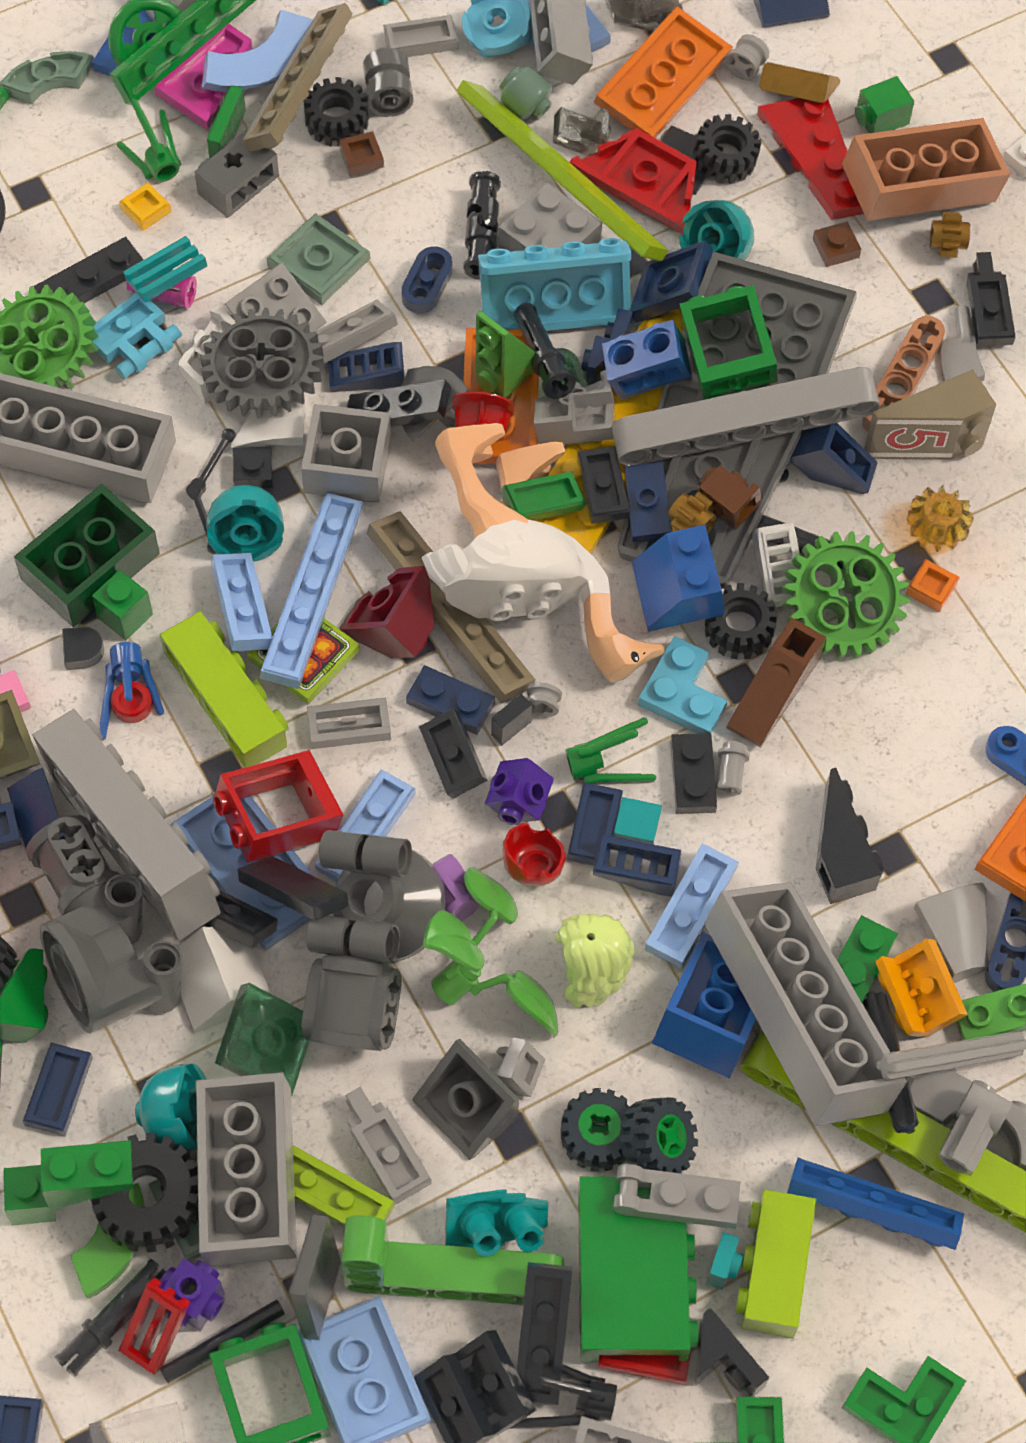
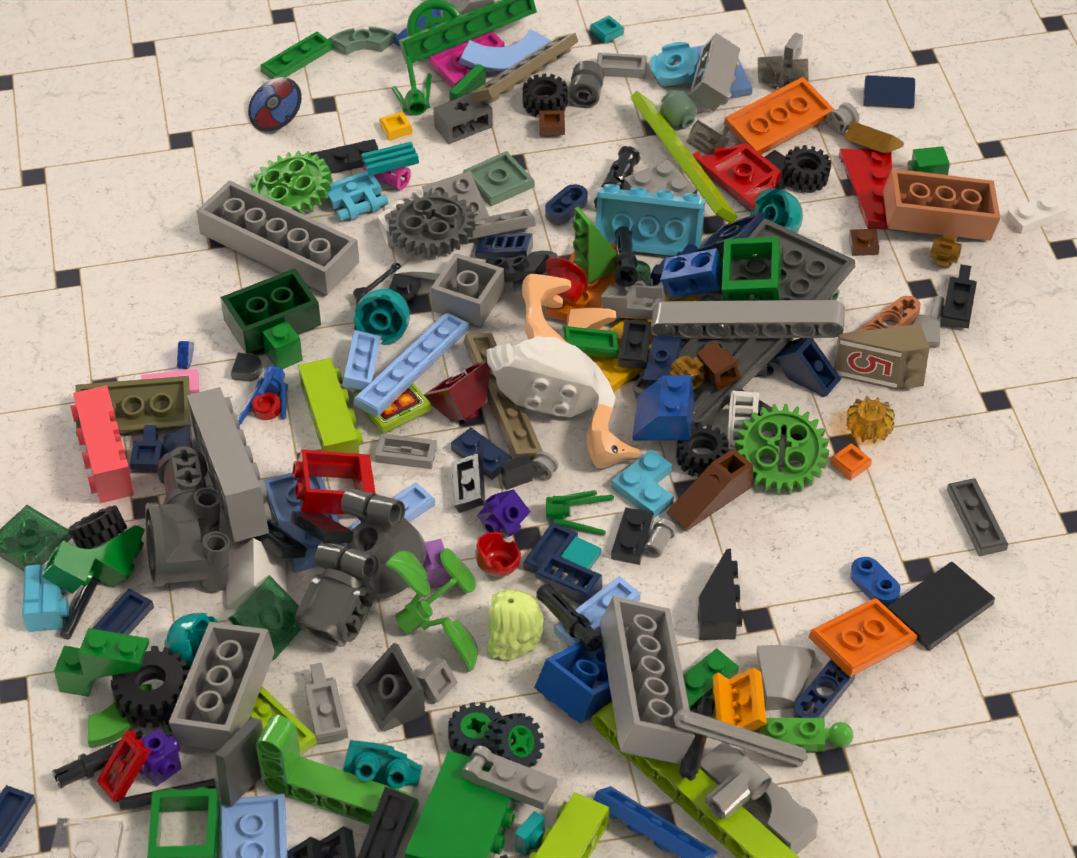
camera: 20 degrees right, 15 degrees down
(677, 937) = (576, 624): none -> black pin

